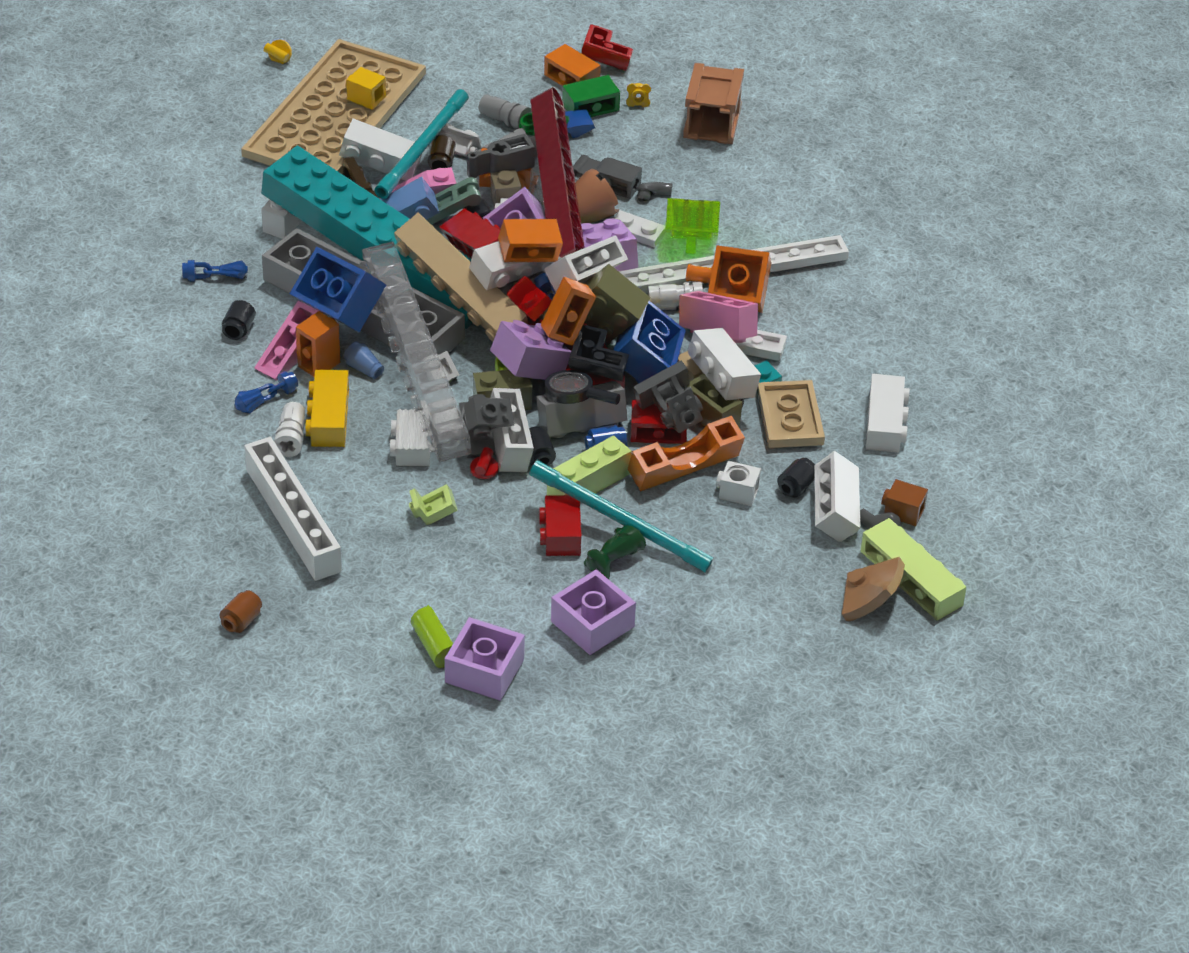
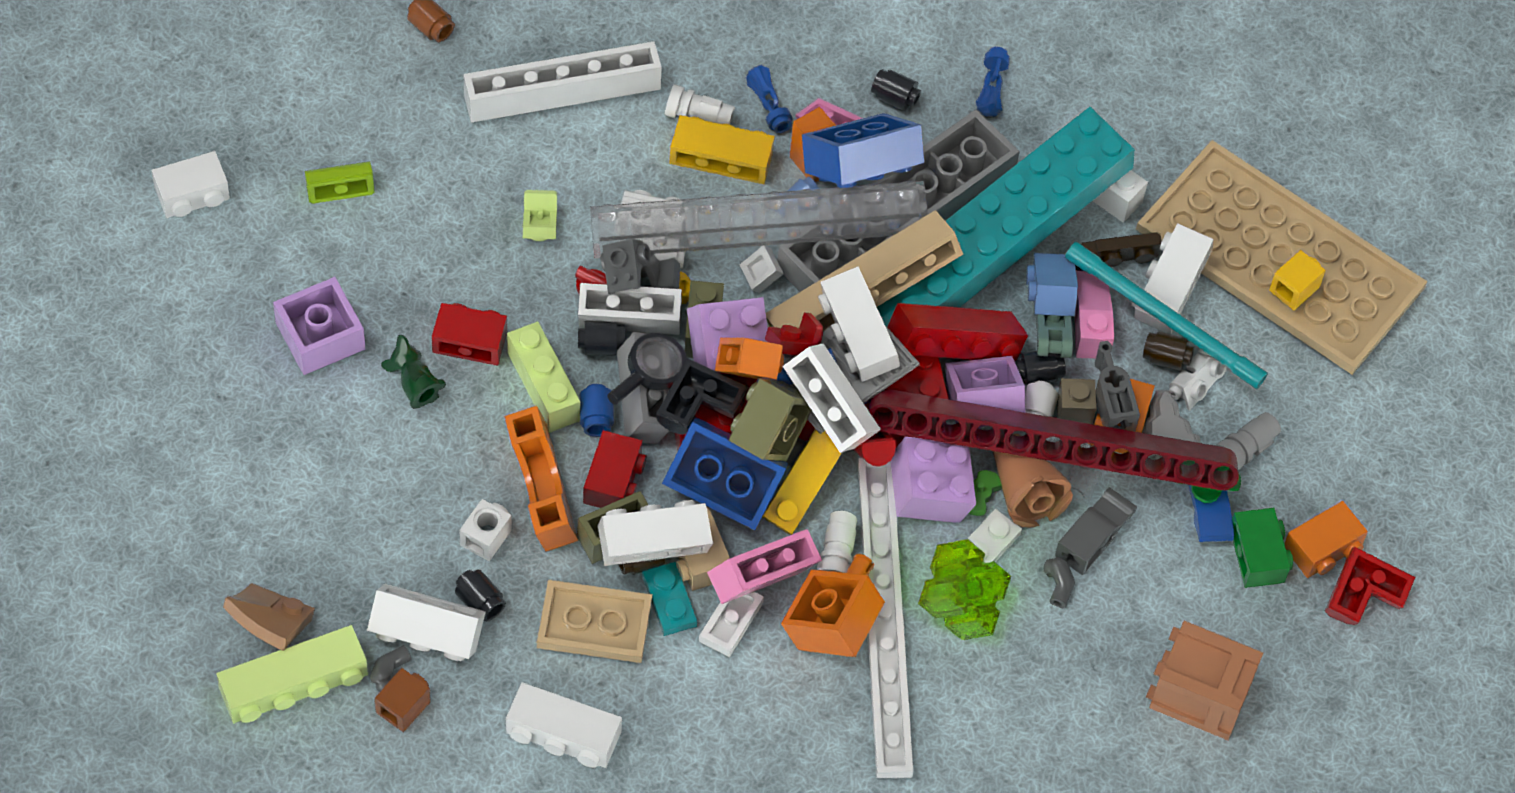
camera: 100 degrees right, 15 degrees up
(278, 51) = (1412, 214): yellow plate -> none
(472, 734) = (191, 185): none -> white brick
(484, 658) = (284, 211): lavender brick -> none
(530, 240) = (856, 323): orange brick -> none
(638, 88) = (1260, 608): yellow plate -> none
(677, 407) = (584, 466): dark grey tile -> none
(687, 552) = (391, 448): teal piece -> none

